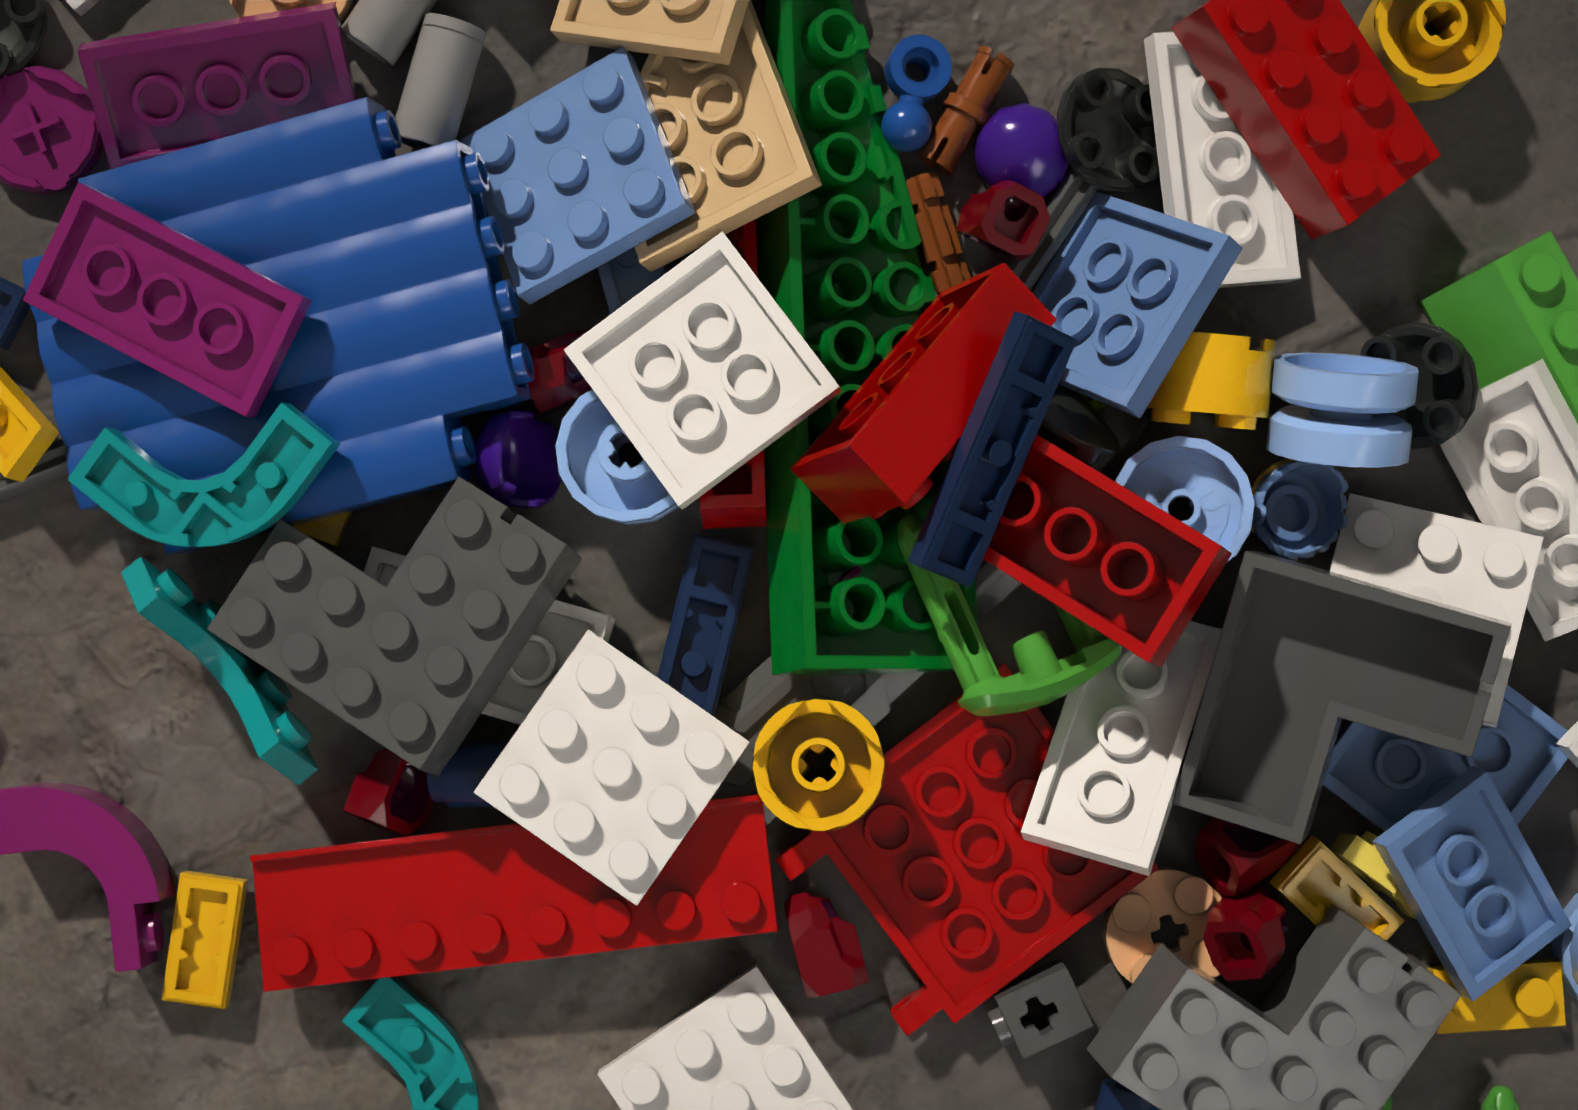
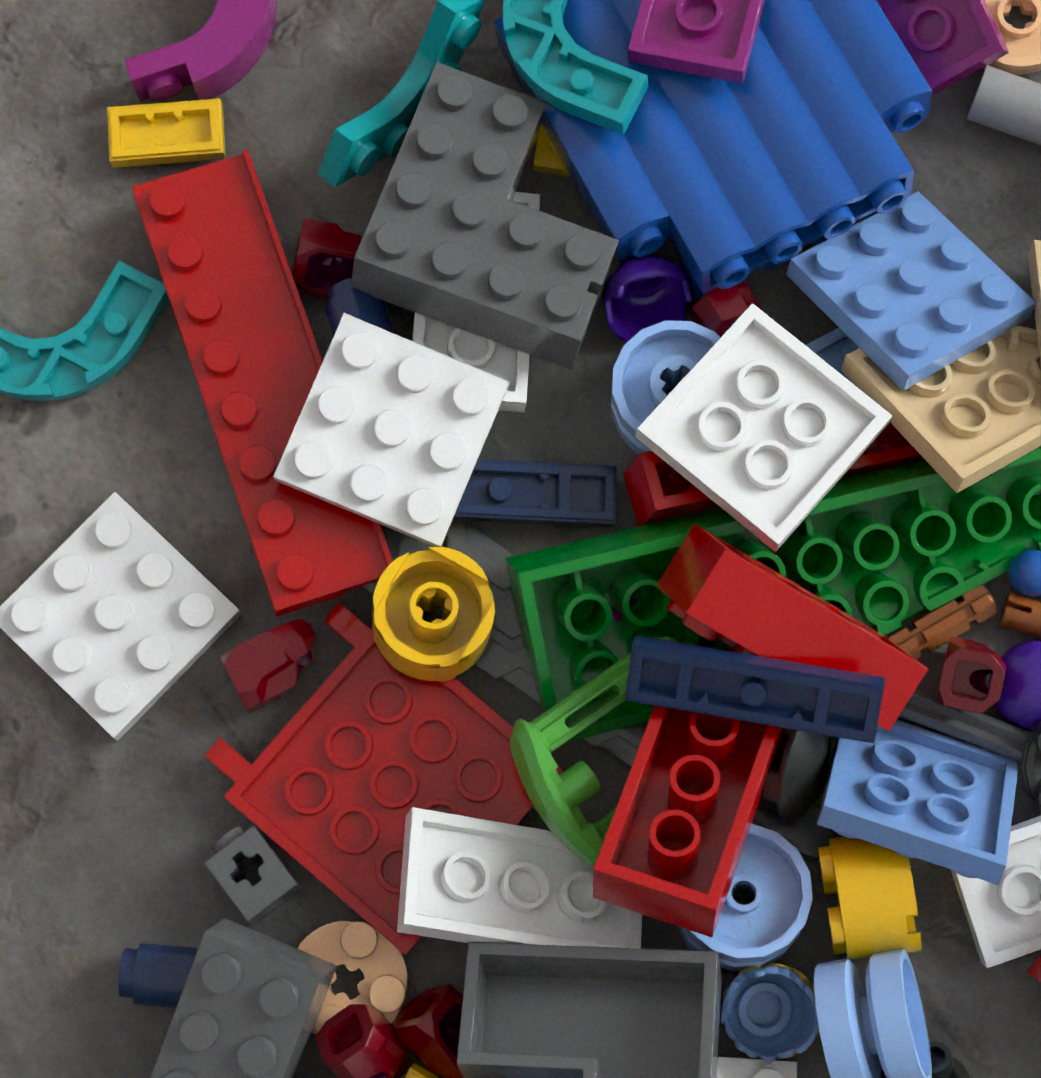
camera: 80 degrees right, 10 degrees down
(439, 81) = (964, 158): light grey pin -> none

